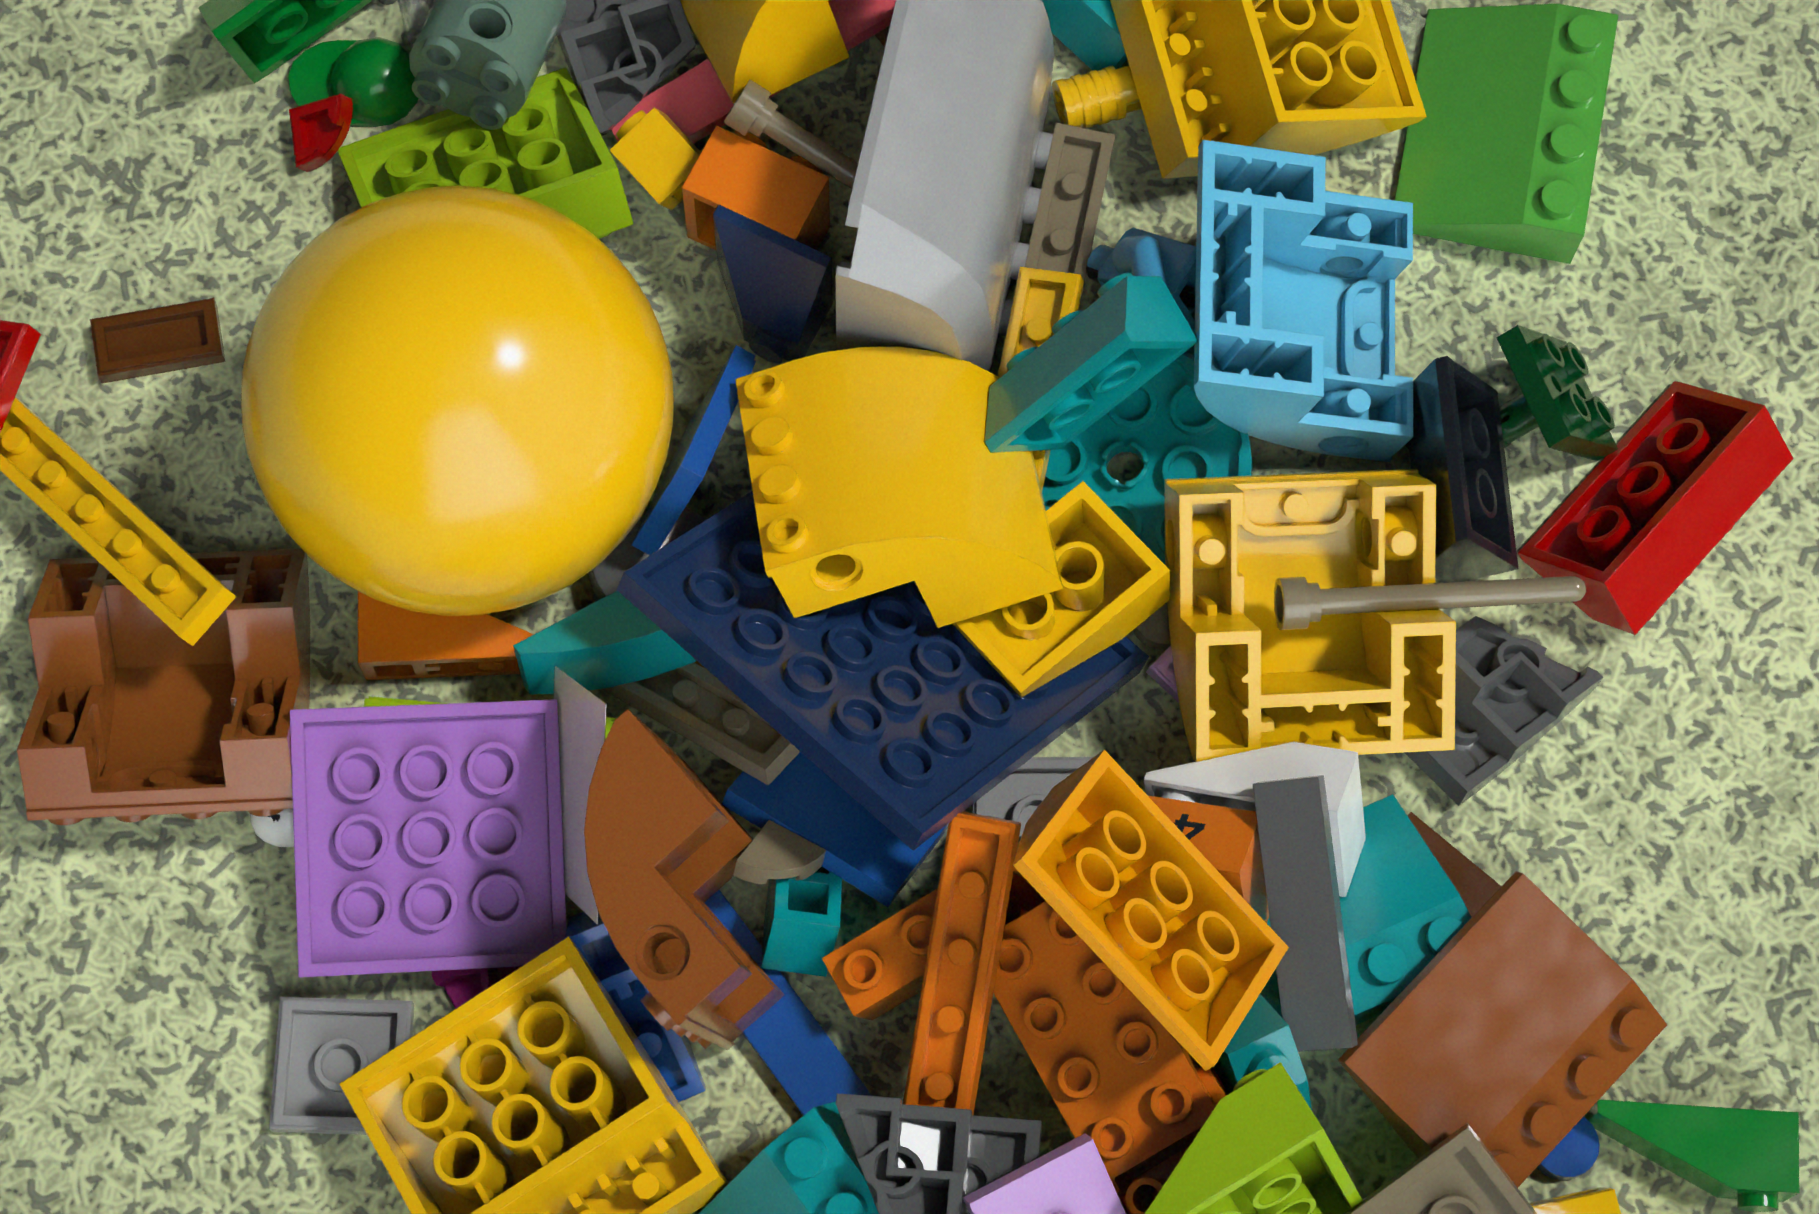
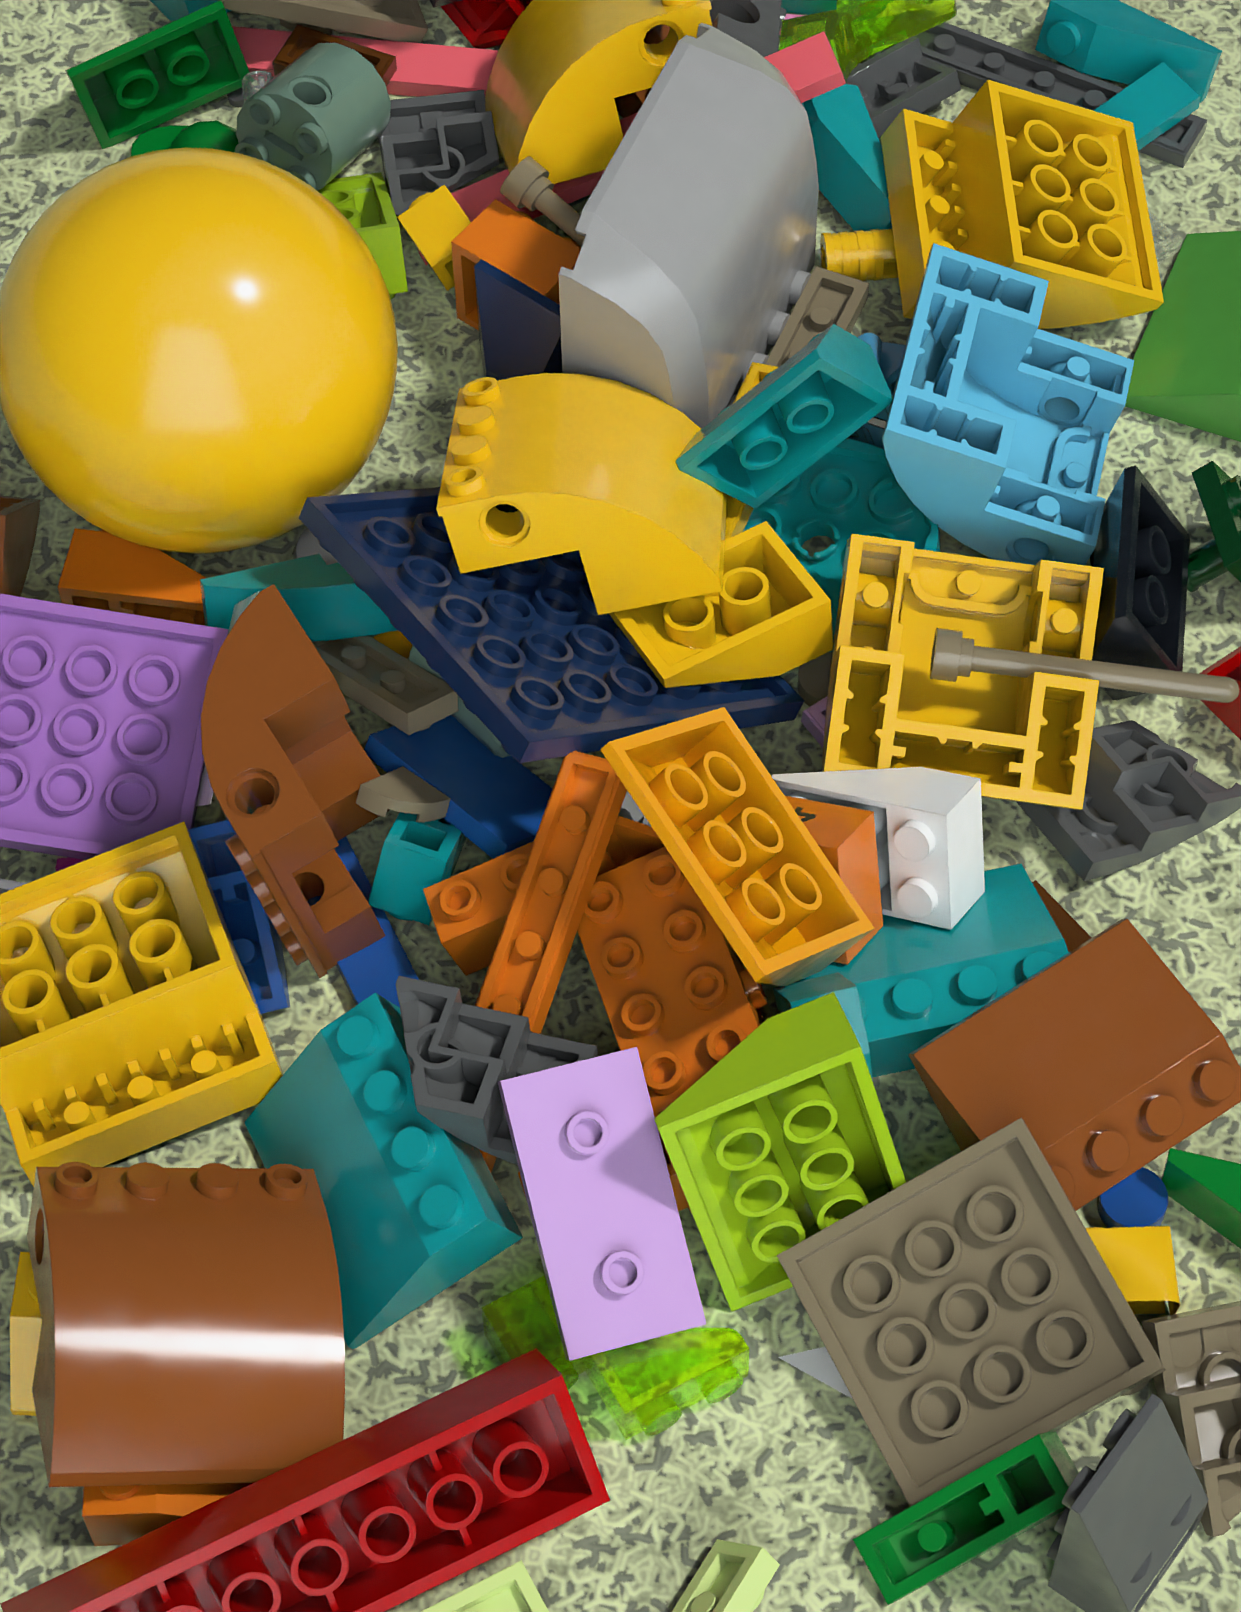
camera: 15 degrees right, 15 degrees down
(693, 453) = (411, 447): blue tile -> none
(1306, 912) = (900, 906): dark grey tile -> none

